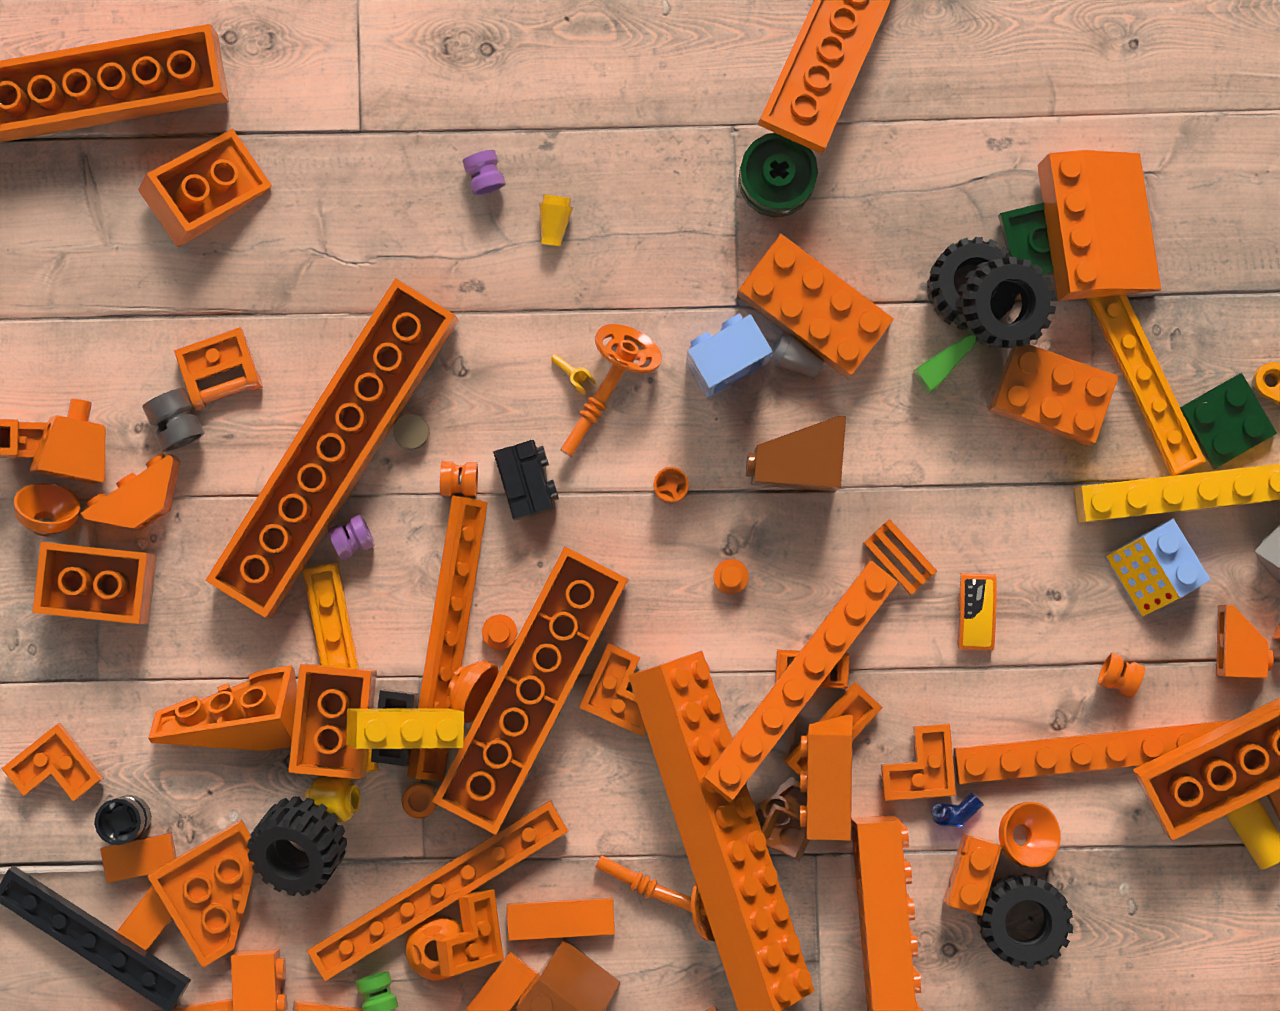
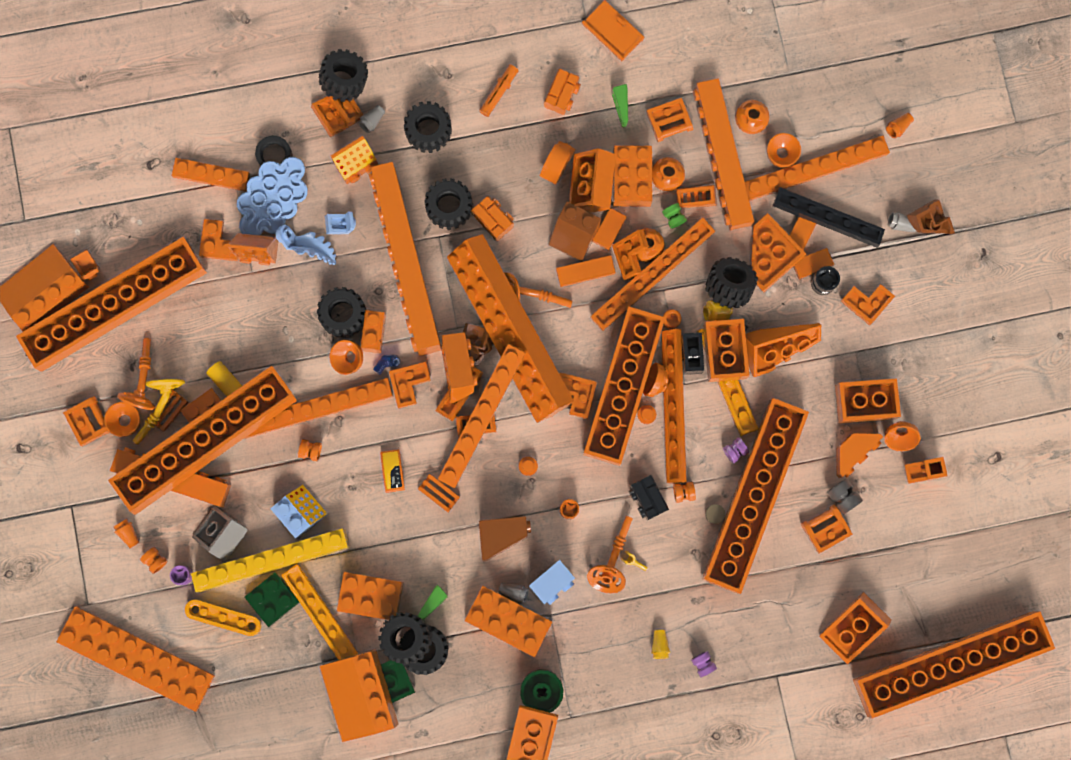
camera: 160 degrees right, 5 degrees down
(72, 446) = (895, 472): orange torso -> none
(405, 728) = (687, 351): yellow brick -> none
(1240, 646) = (247, 475): orange slope -> none

